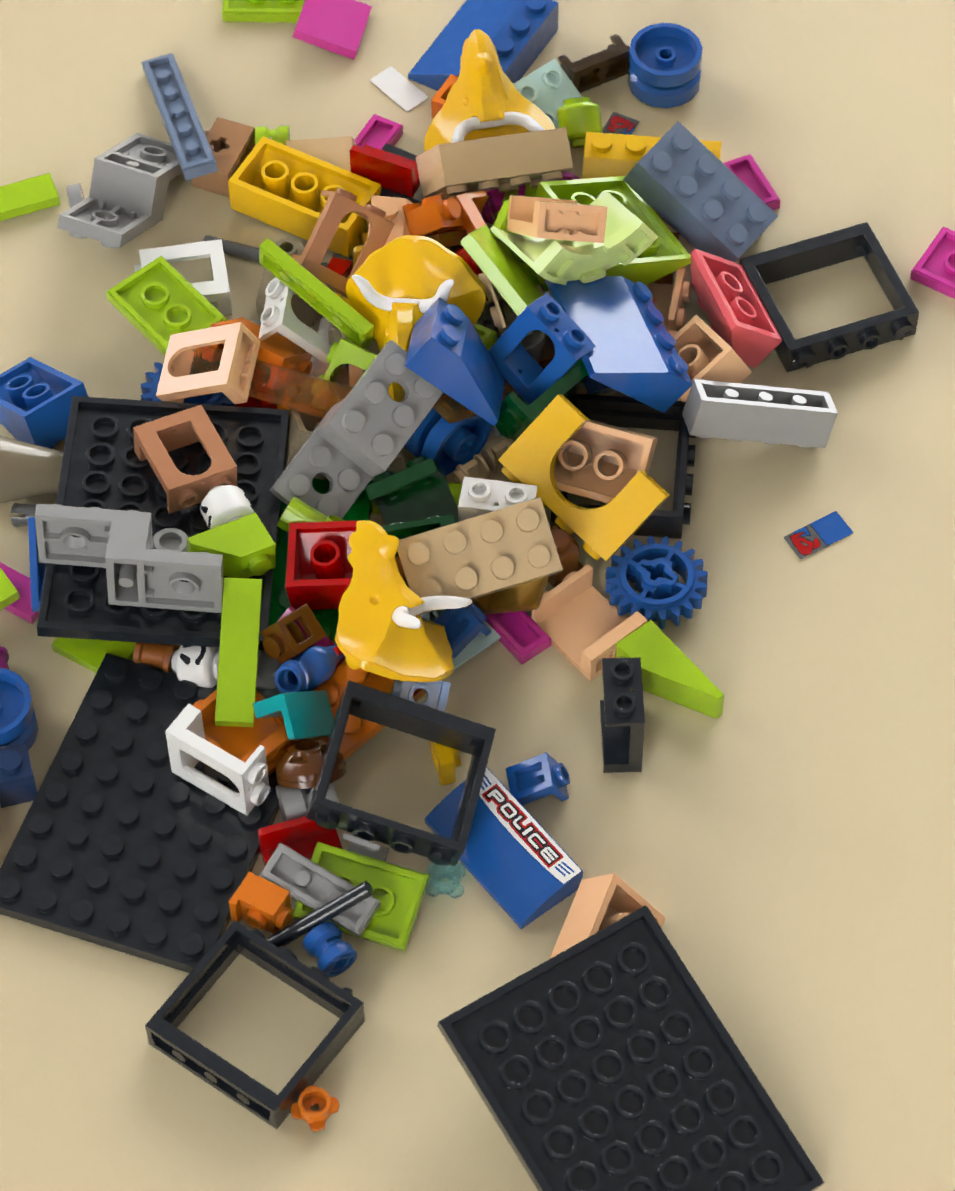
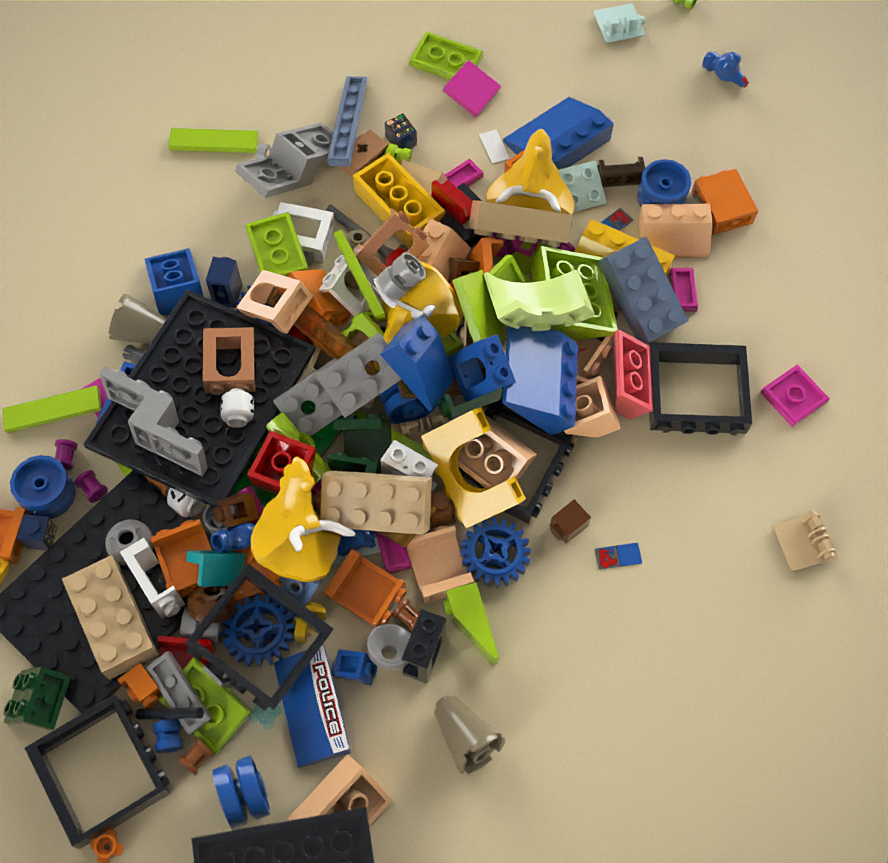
camera: 20 degrees right, 10 degrees up
(45, 693) = (91, 486): none -> magenta bush
(112, 368) = (224, 281): none -> dark blue brick
(123, 961) = (37, 697): none -> dark green bracket
(143, 752) = (112, 542): none -> light grey piece
(170, 539) = (192, 417): light grey tile -> none
(180, 830) = (110, 617): none -> tan brick
(238, 652) = (197, 508): lime tile -> none
(242, 542) = (228, 435): lime slope -> none
(261, 107) = (401, 132): none -> brick
(380, 270) = (401, 276): none -> light grey wheel
(380, 959) = (196, 756): none -> dark orange bush
(388, 780) = (261, 651): none -> blue gear
(433, 216) = (461, 246): orange brick -> none
(466, 962) = (246, 790): none -> blue wheel
(506, 686) = (365, 589): none -> orange panel
(556, 219) = (524, 279): light nougat panel -> none
(575, 731) = (388, 637): none -> light grey piece
(579, 116) = (592, 207): lime head -> none
(579, 696) = (406, 614): none -> dark orange bush
(709, 106) = (677, 228): none -> light nougat slope
(727, 800) = (467, 734): none -> dark tan cone
(736, 512) = (569, 521): none -> reddish brown brick
(755, 55) = (728, 200): none -> orange panel
(759, 413) = (613, 459): light grey brick -> none

